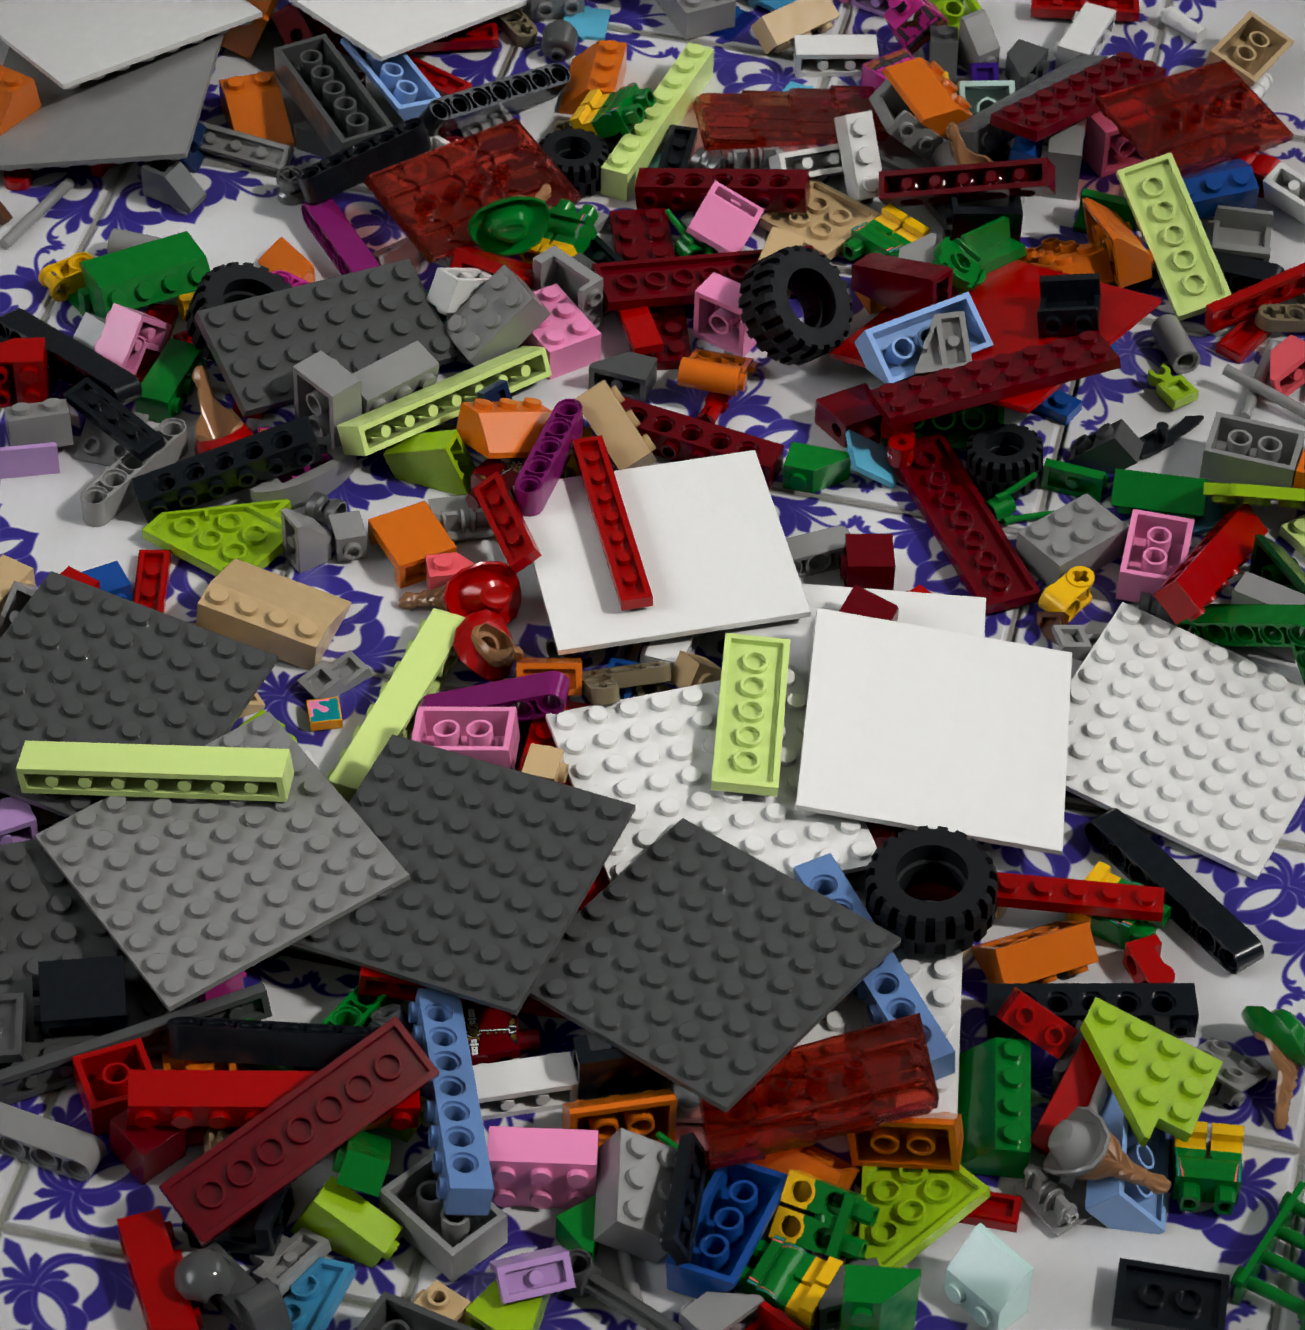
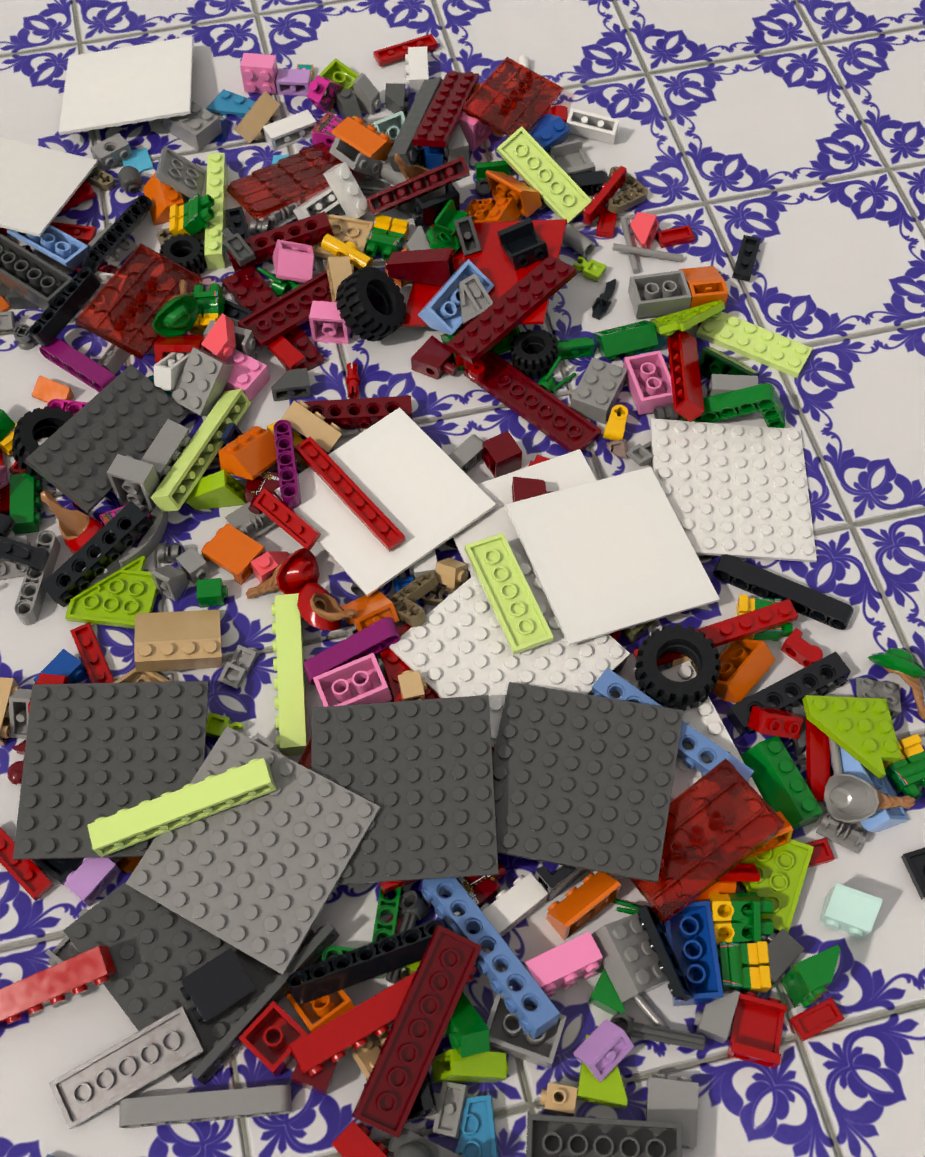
camera: 25 degrees left, 15 degrees up
(324, 713) = (246, 695): tile -> none
(352, 577) = (211, 592): none -> green brick
(553, 270) = (221, 338): none -> coral slope
(631, 52) = (181, 174): none -> light grey plate
(652, 173) = (237, 247): none -> dark grey hinge
(715, 372) = (343, 367): orange piece -> none
(814, 468) = (432, 401): green slope -> none
(815, 233) = (349, 249): none -> yellow piece
(851, 1164) = (742, 873): none -> red tile
(869, 459) = (460, 383): medium azure piece -> none
(984, 71) = (378, 112): dark purple tile -> none
(999, 269) = (467, 235): none -> dark grey slope
(1077, 228) = (483, 188): none -> dark grey tile
(1107, 448) = (581, 322): dark grey slope -> none
(1180, 22) = (459, 40): white piece -> none
(1251, 48) = (510, 43): tan slope -> none

